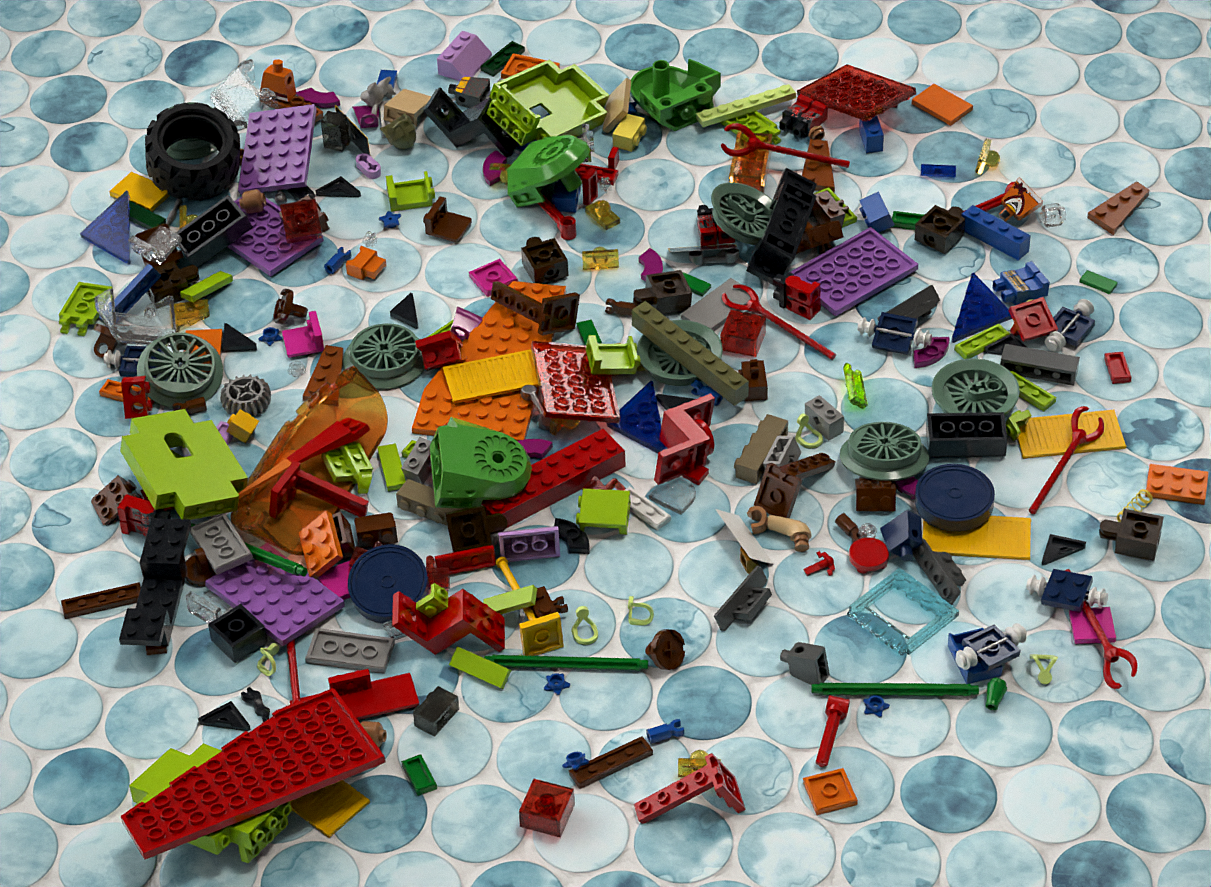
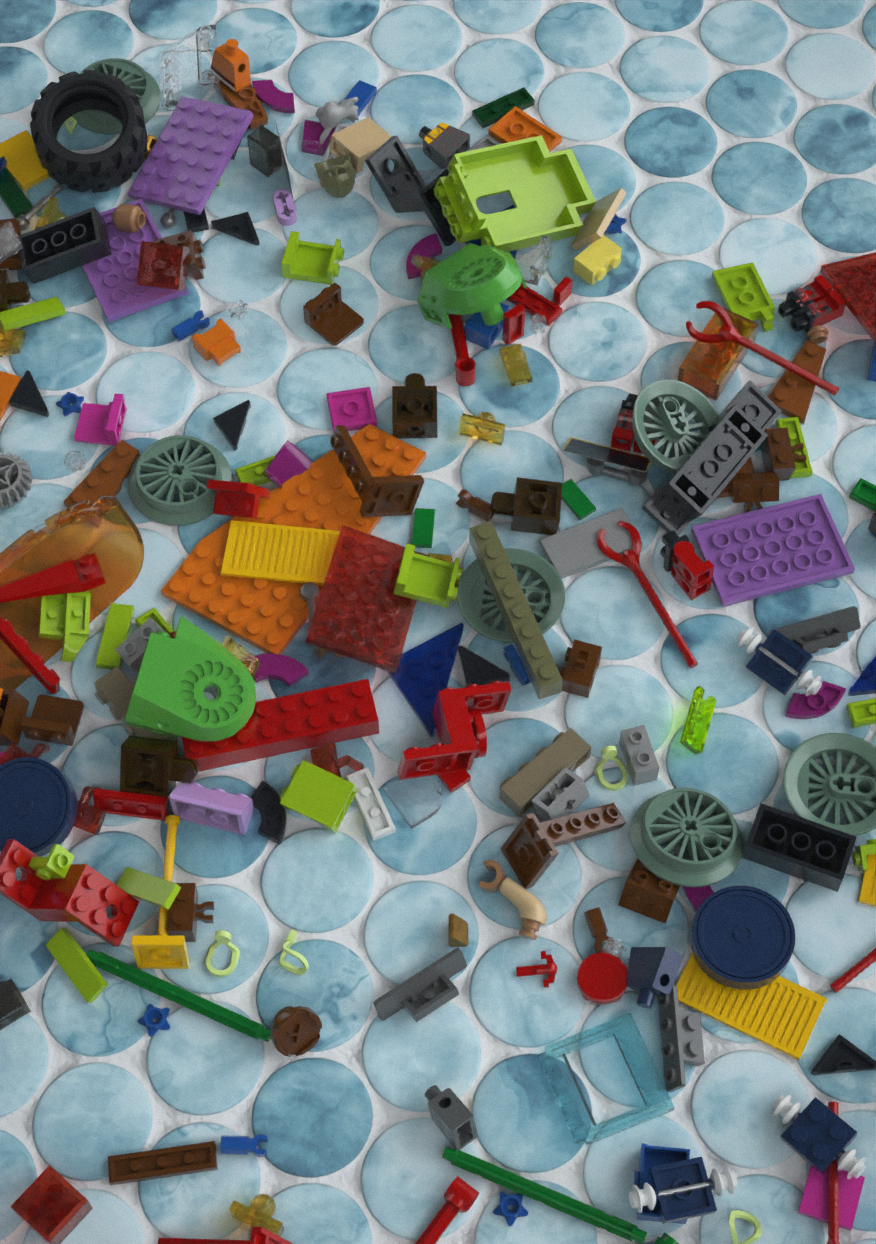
camera: 20 degrees right, 15 degrees up
(286, 307) = (97, 374): reddish brown tile -> none
(390, 220) = (271, 294): blue plate -> none
(463, 57) = (457, 93): lavender slope -> none
(575, 760) = (118, 1140): blue plate -> none
(651, 262) = (540, 457): magenta tile -> none
(675, 94) = (672, 224): bright green animal -> none
(743, 333) = (599, 595): clear red brick -> none
(744, 536) = (464, 896): white sticker -> none
(745, 105) = (751, 267): yellowish green plate -> none
(876, 212) = (836, 476): blue brick -> none

